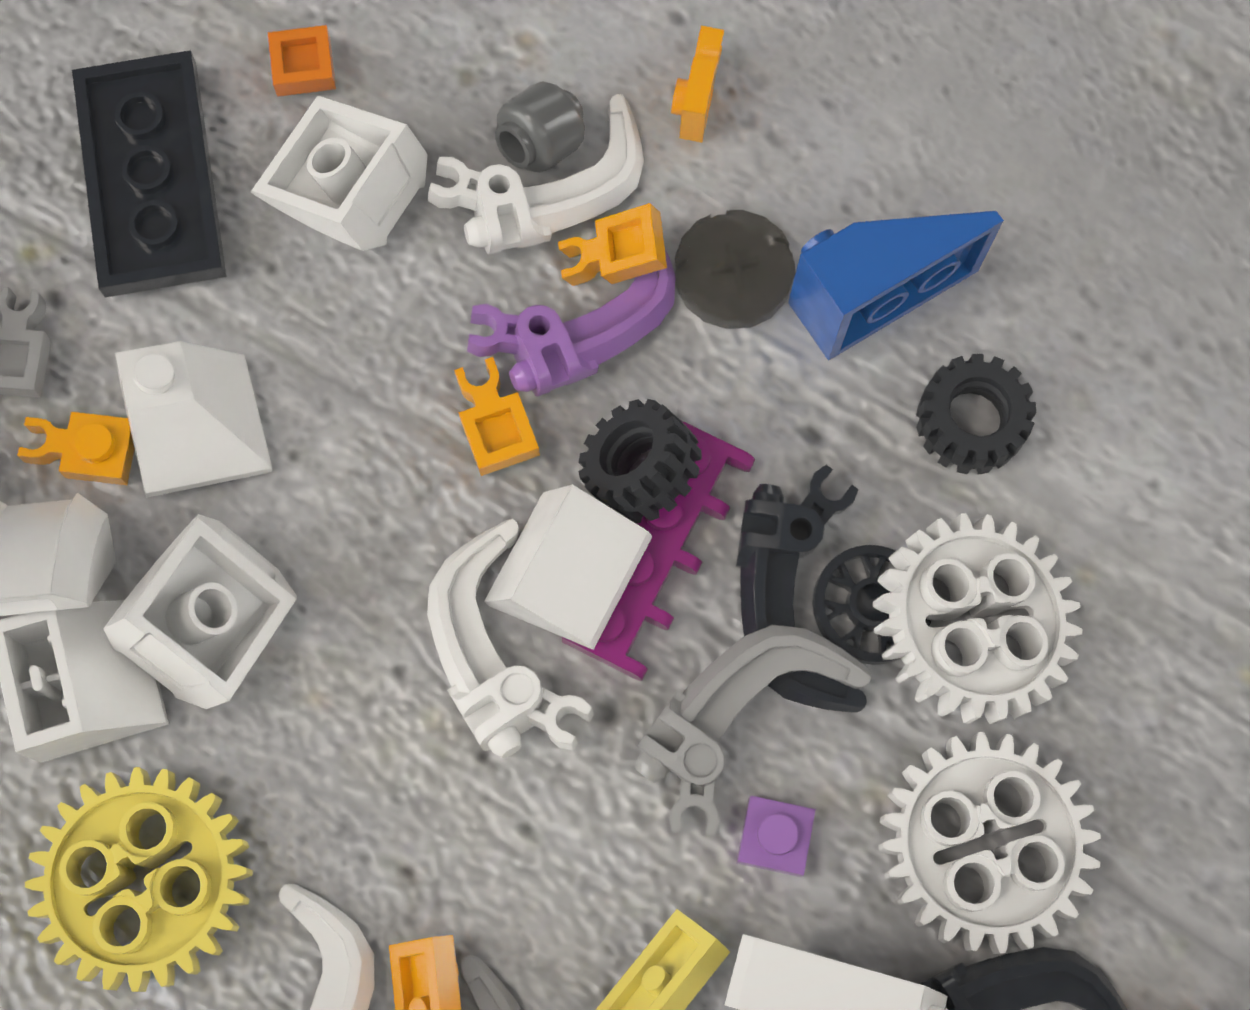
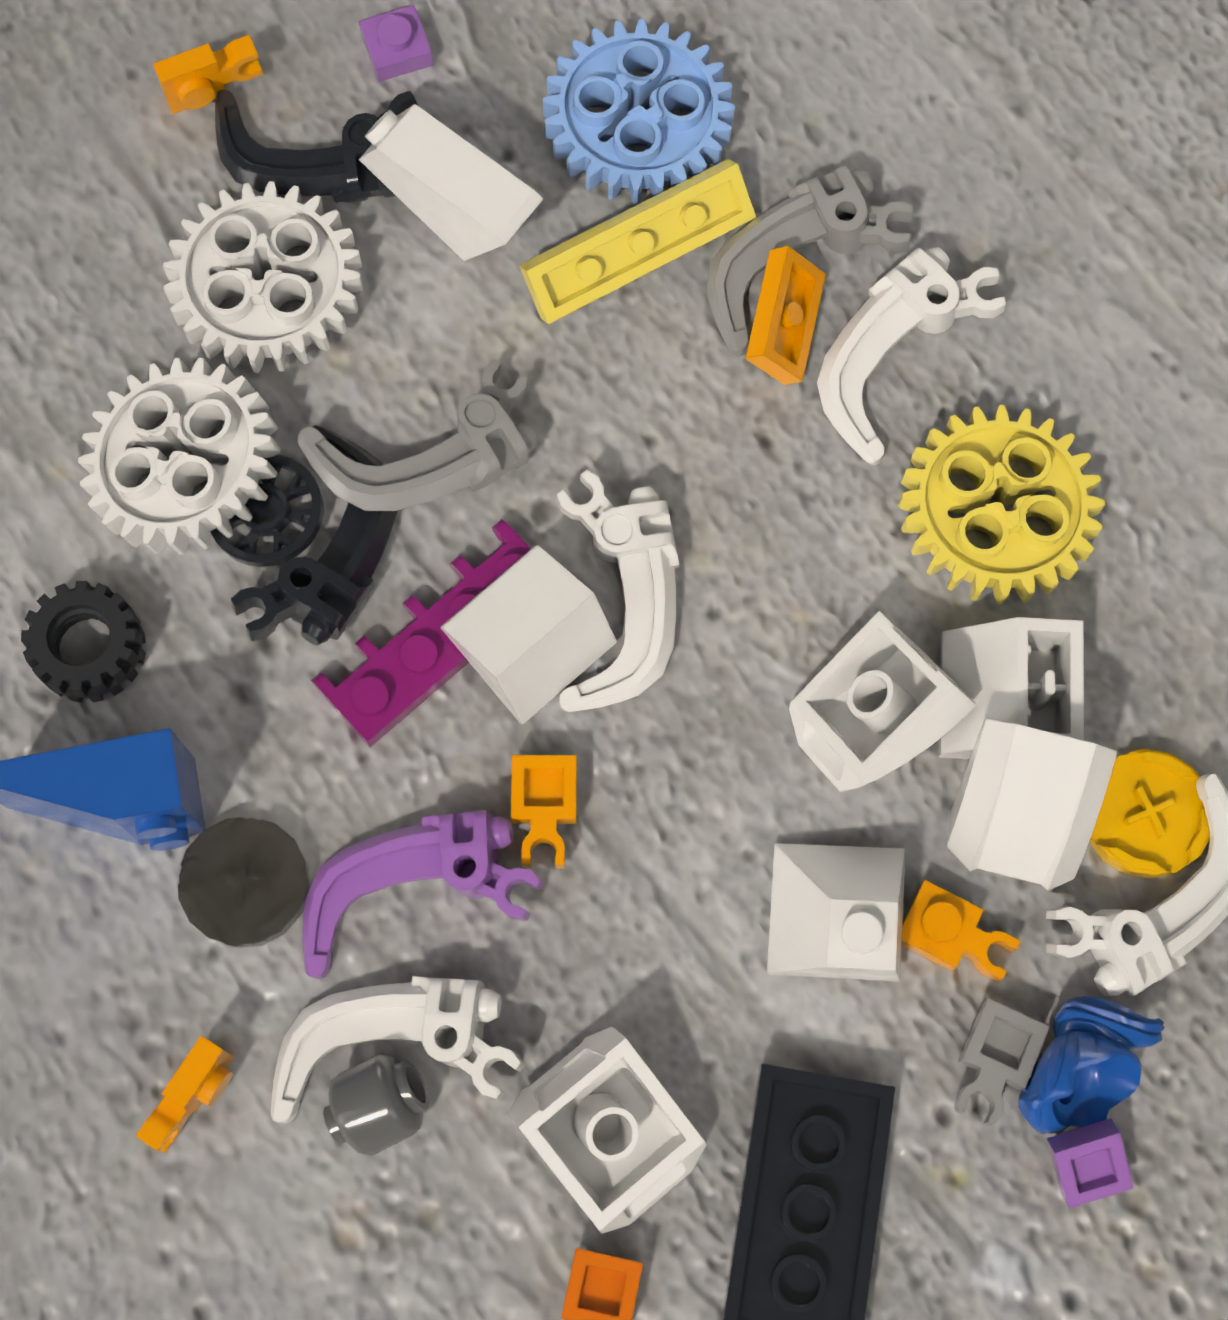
camera: 160 degrees left, 0 degrees up
(624, 248) = (346, 930): light orange plate -> none
(657, 478) = (453, 715): black tyre -> none
(776, 836) = (440, 352): medium lavender plate -> none

